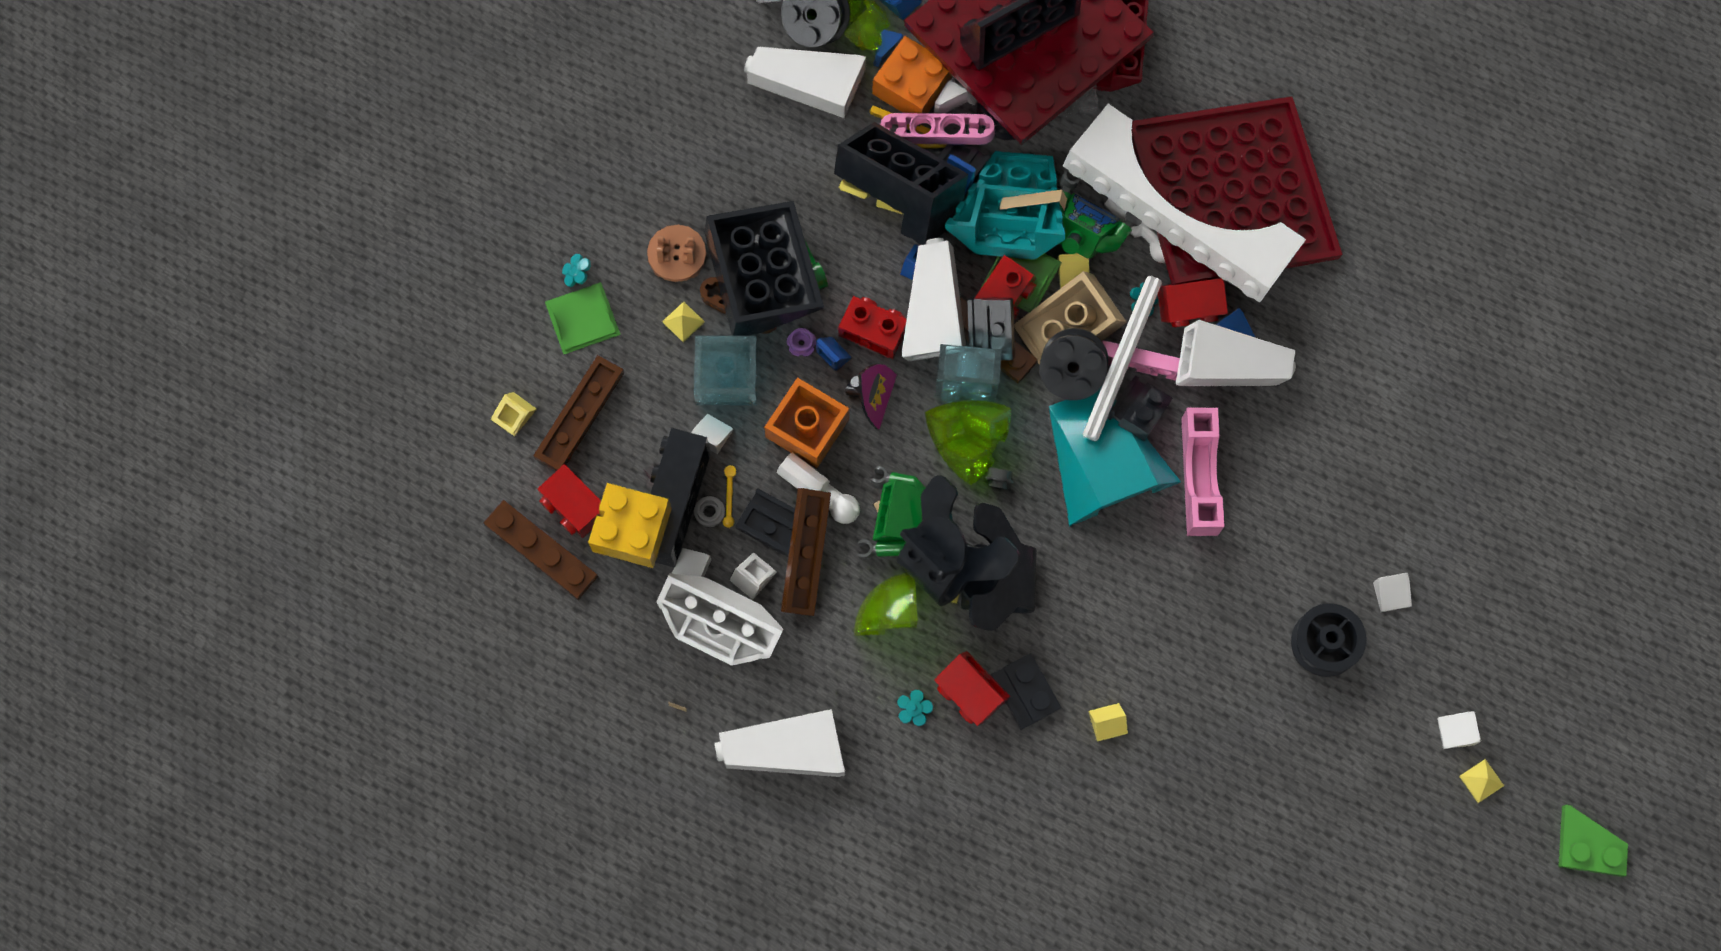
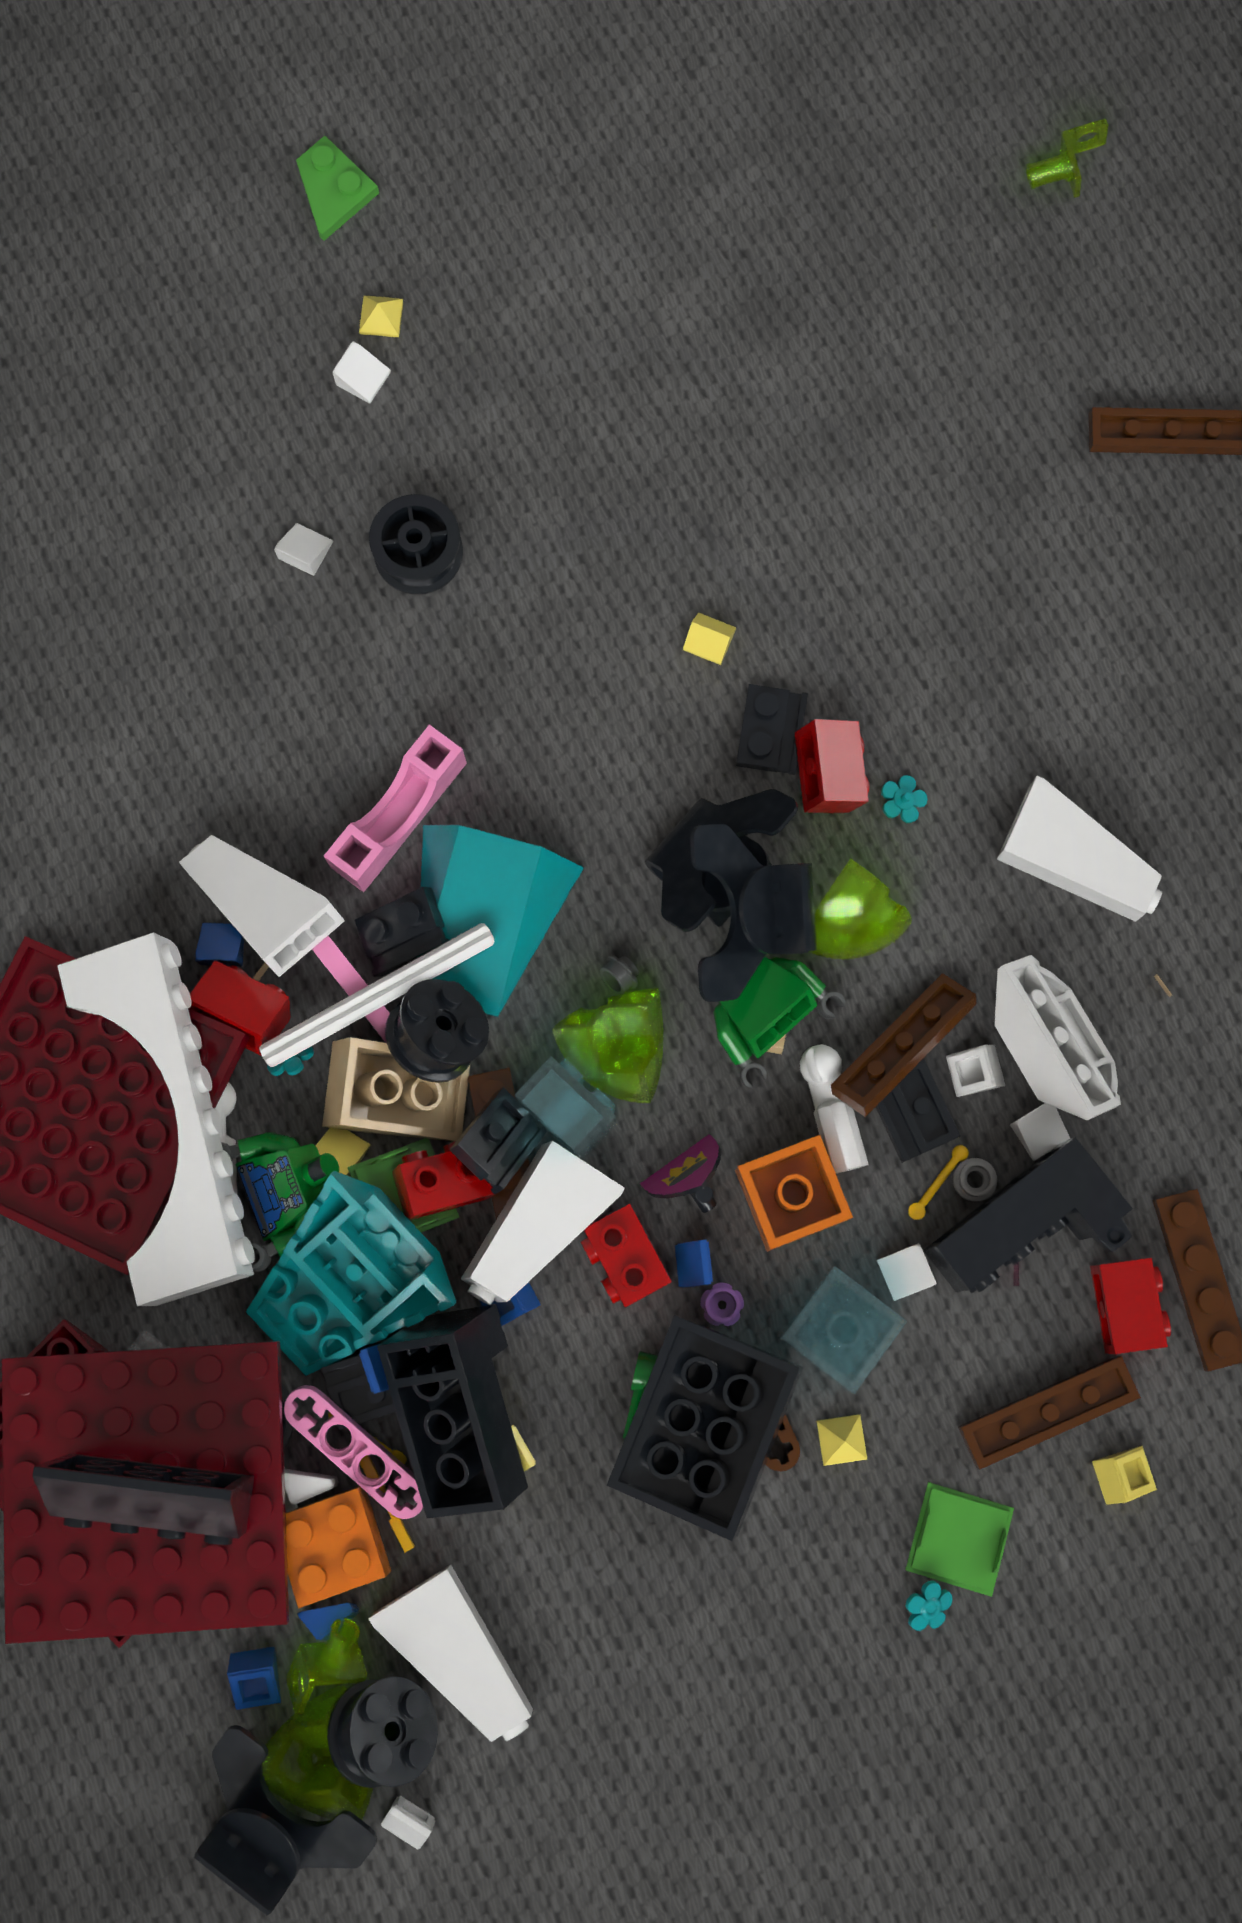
camera: 140 degrees left, 5 degrees up
(630, 525) = (1108, 1196): yellow piece -> none
(690, 254) = (805, 1550): nougat plate -> none
(1034, 199) = (322, 1261): tan piece -> none

